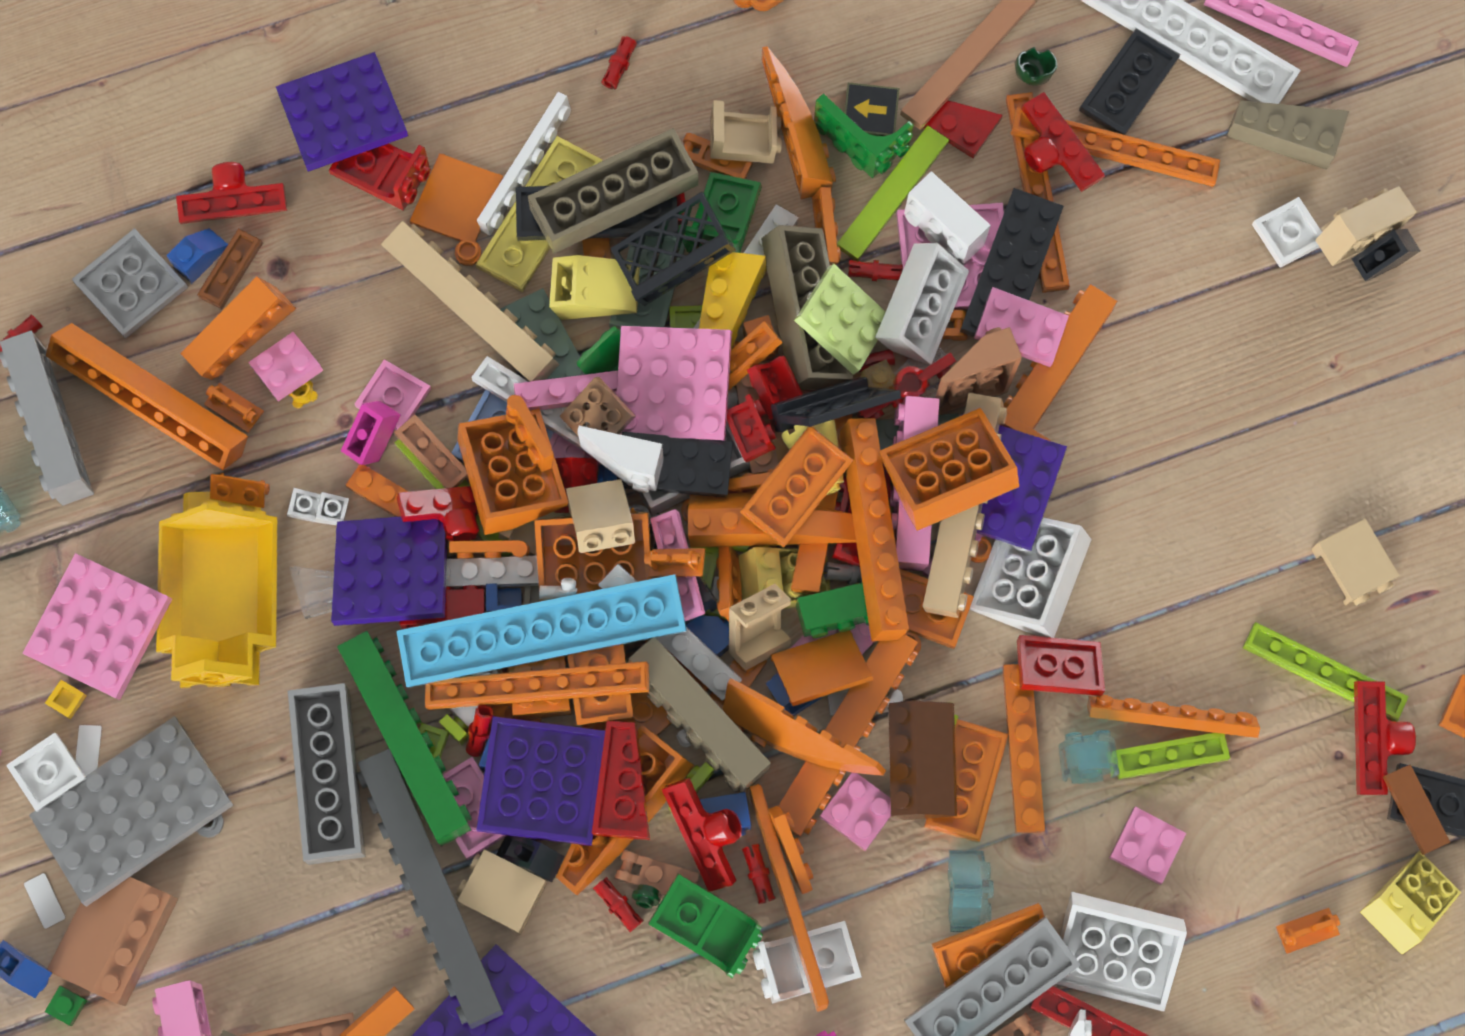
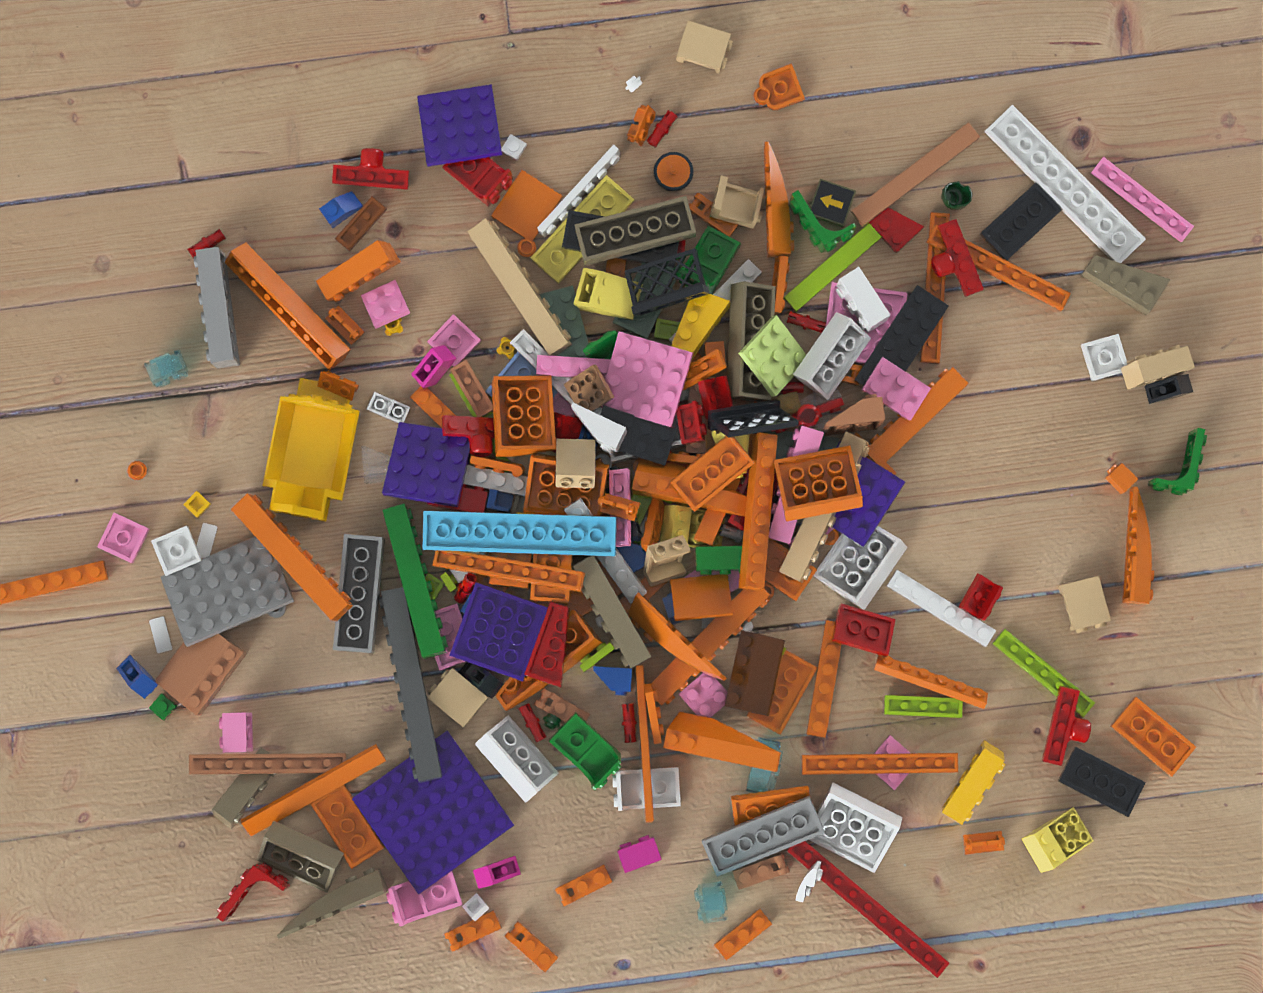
camera: 20 degrees right, 10 degrees up
(97, 626) = (226, 459): bright pink plate -> none
(129, 283) = (290, 220): light grey plate -> none
(218, 740) = (292, 557): none -> orange brick
(422, 127) = (513, 147): none -> white plate
(462, 394) = (502, 349): none -> yellow plate
(528, 431) = (539, 393): orange plate -> none
(567, 12) = (633, 83): none -> white plate
(567, 588) = (542, 508): white arm -> none
(592, 52) = (645, 117): none -> orange hinge
(606, 962) = (516, 758): none -> white slope
(647, 113) = (673, 171): none -> orange wheel
(704, 833) = (598, 690): red plate -> none
(896, 867) = (718, 741): none -> orange wedge
(1088, 757) = (866, 696): clear light blue brick -> none
(1131, 848) = (880, 763): none -> orange tile
(1159, 614) = (941, 608): none -> white plate
(1211, 585) = (981, 597): none -> red bracket
(1273, 847) = (974, 782): none -> yellow wedge
(1356, 383) = (1120, 477): none -> orange brick
(1408, 478) = (1138, 556): none -> orange wedge
(1416, 809) = (1077, 780): dark orange tile -> none
(1446, 348) = (1189, 474): none -> green bracket

